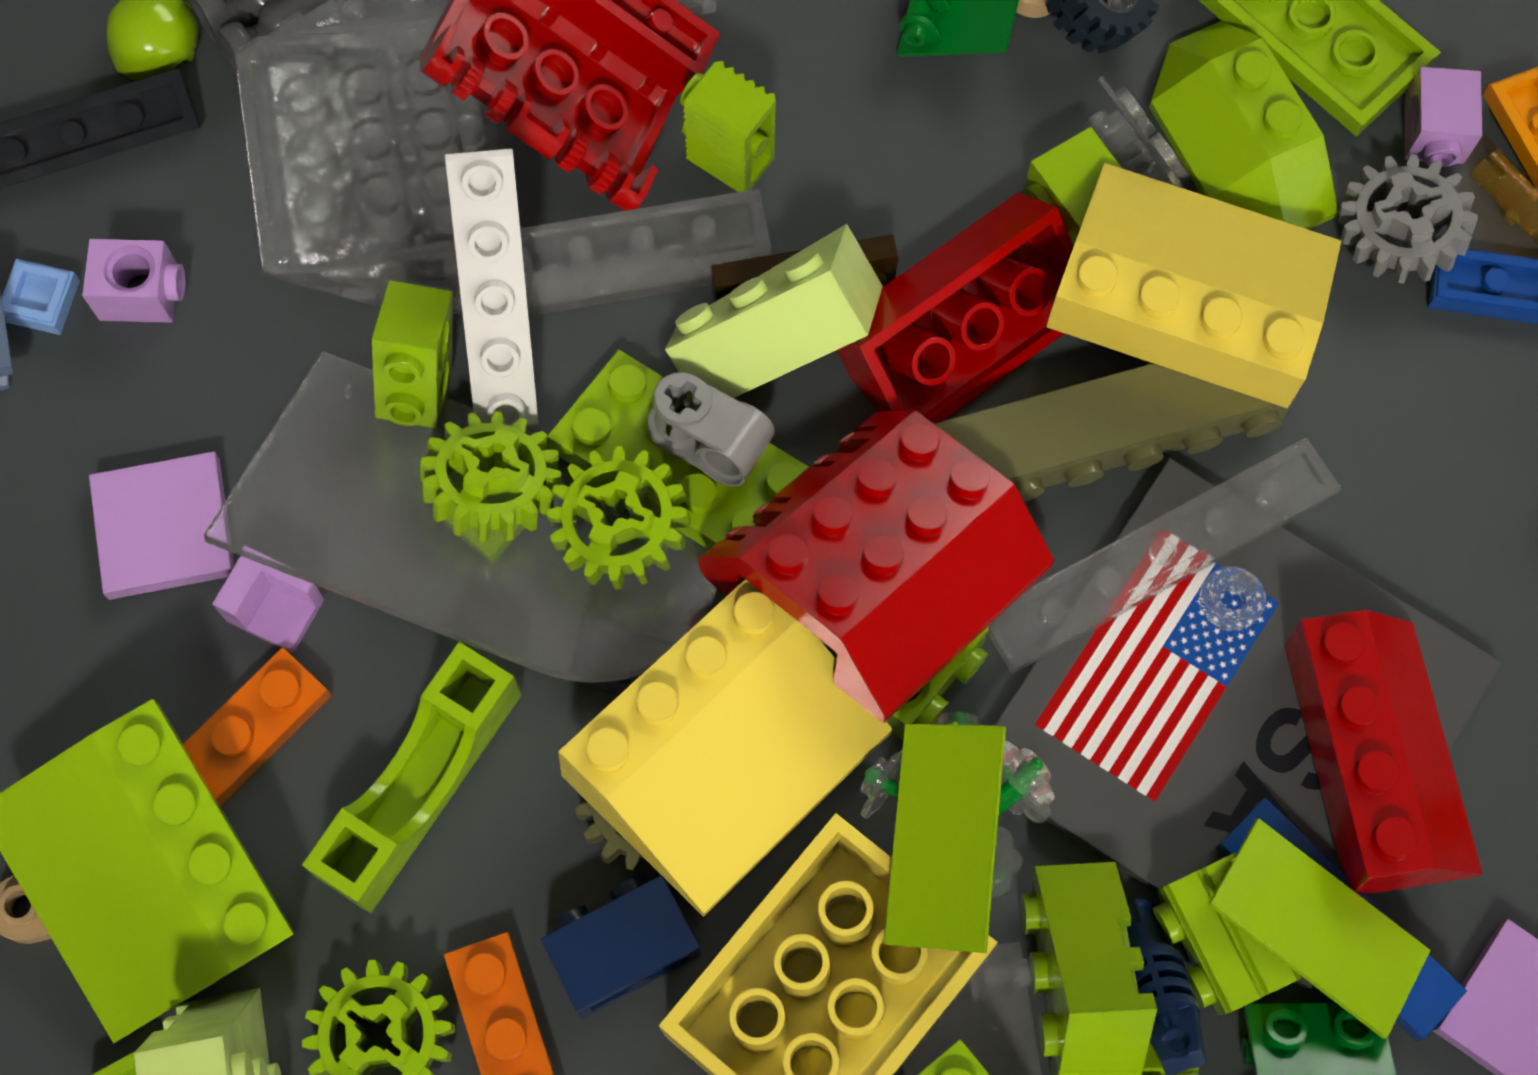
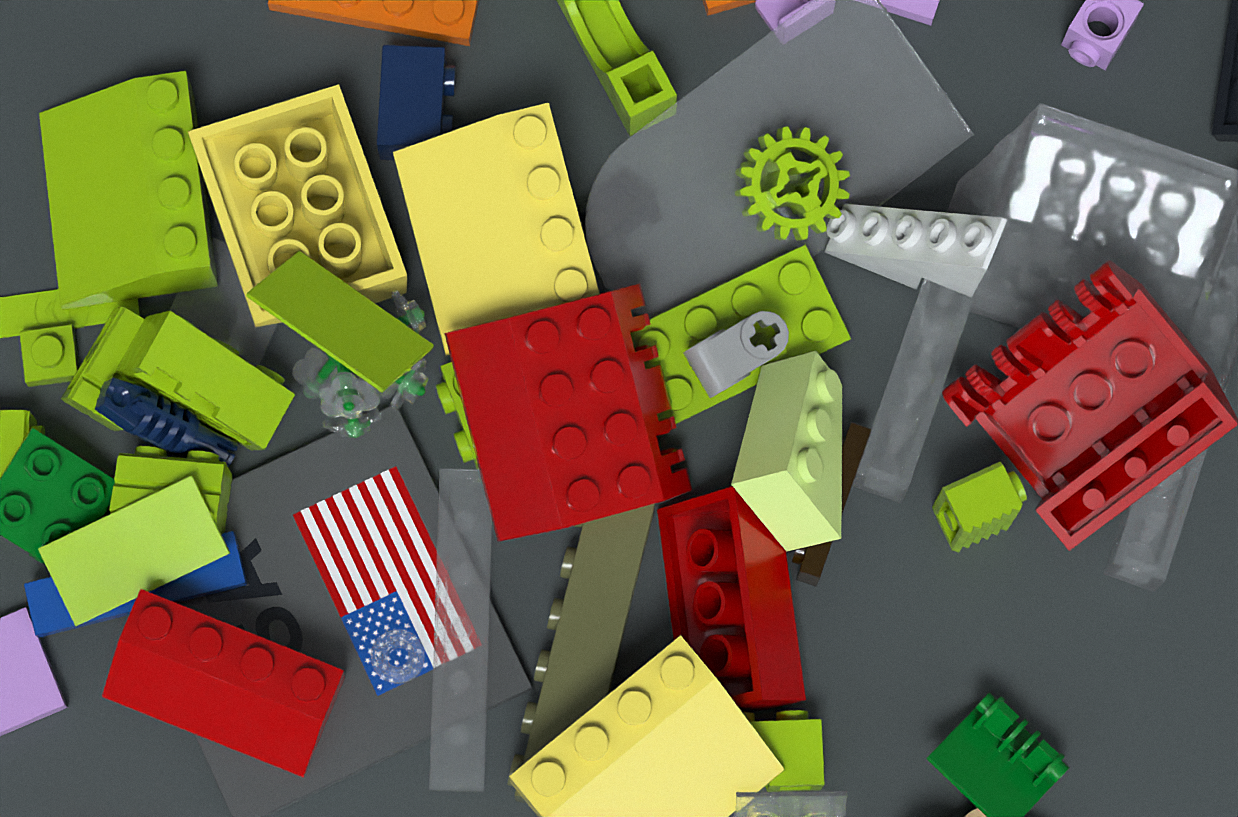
camera: 120 degrees right, 5 degrees up
(412, 354) = (915, 173): lime brick -> none
(628, 491) = (710, 228): lime gear -> none

